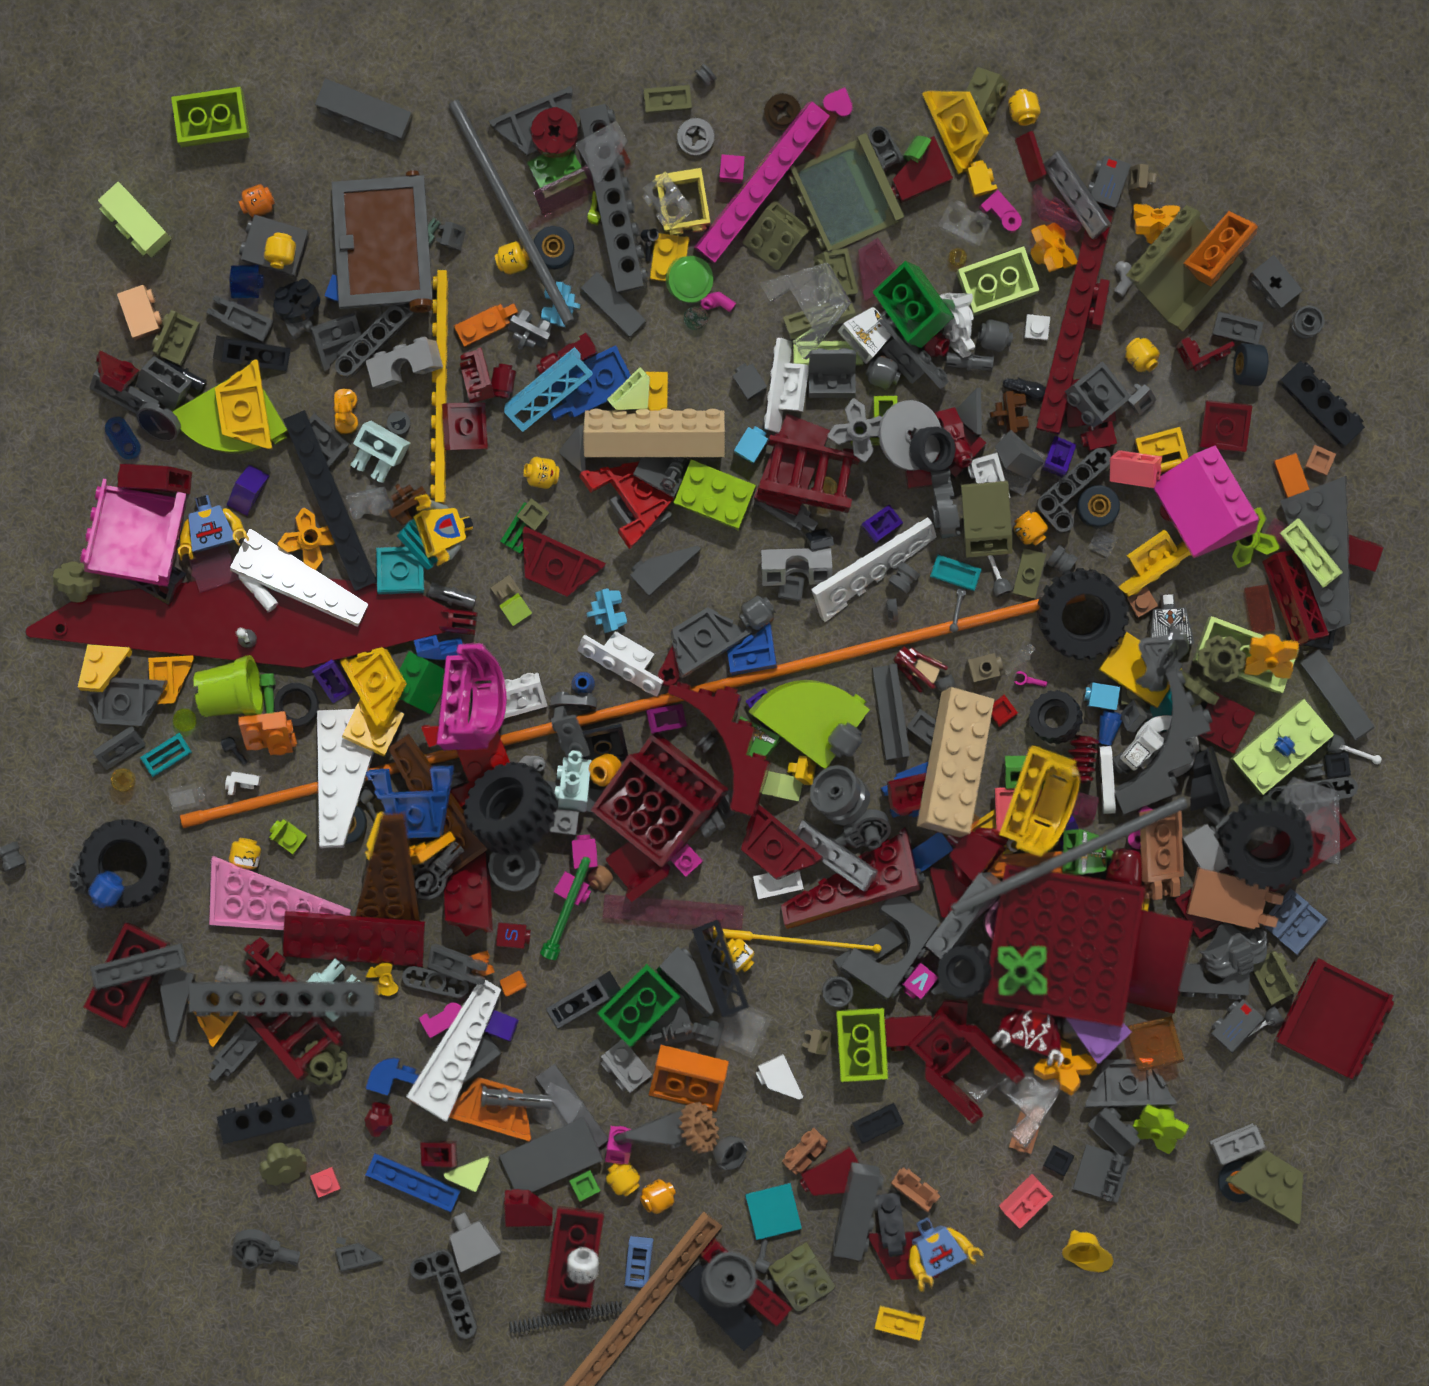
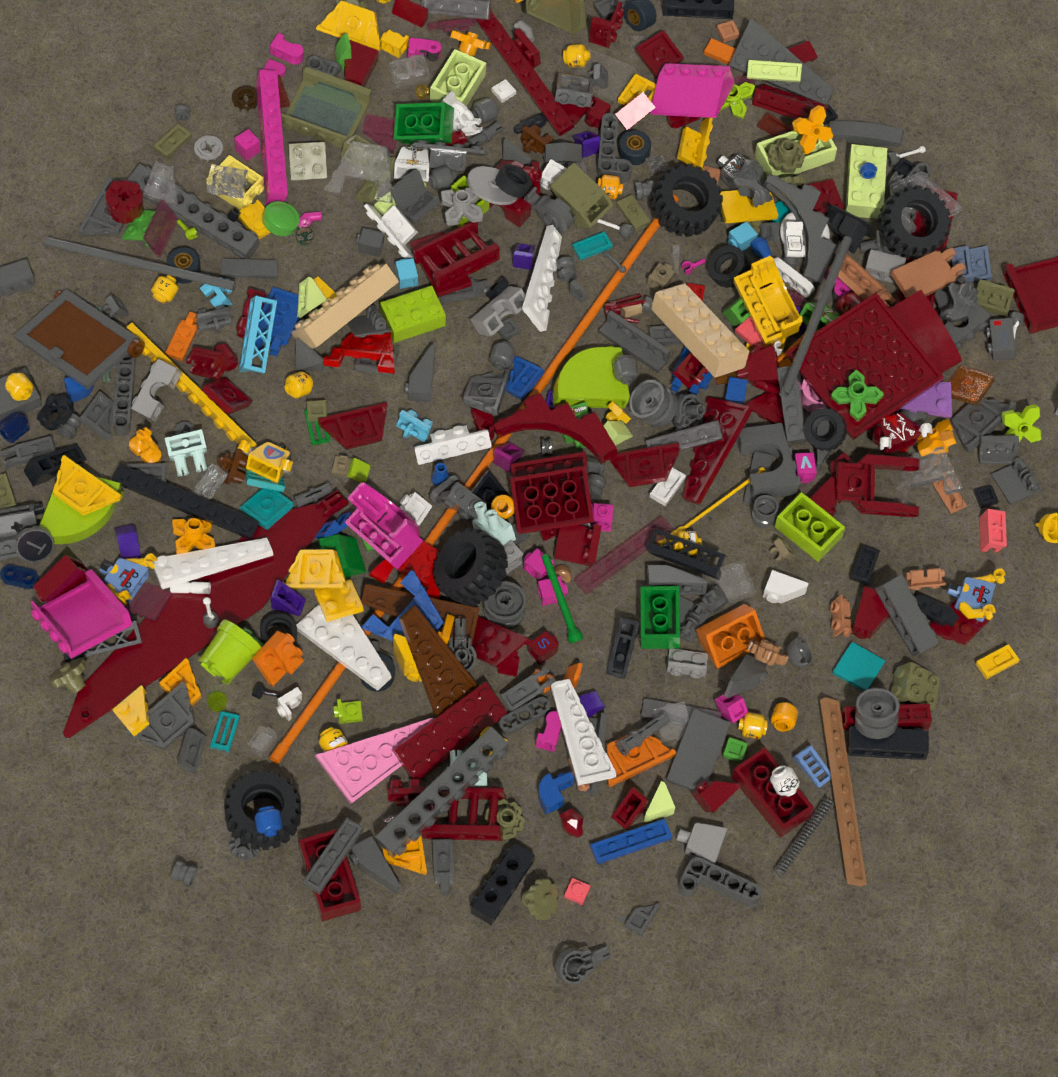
camera: 45 degrees left, 25 degrees down
(127, 780) = (210, 771): clear yellow wheel -> none
(871, 100) = (286, 51): none -> dark pink leg

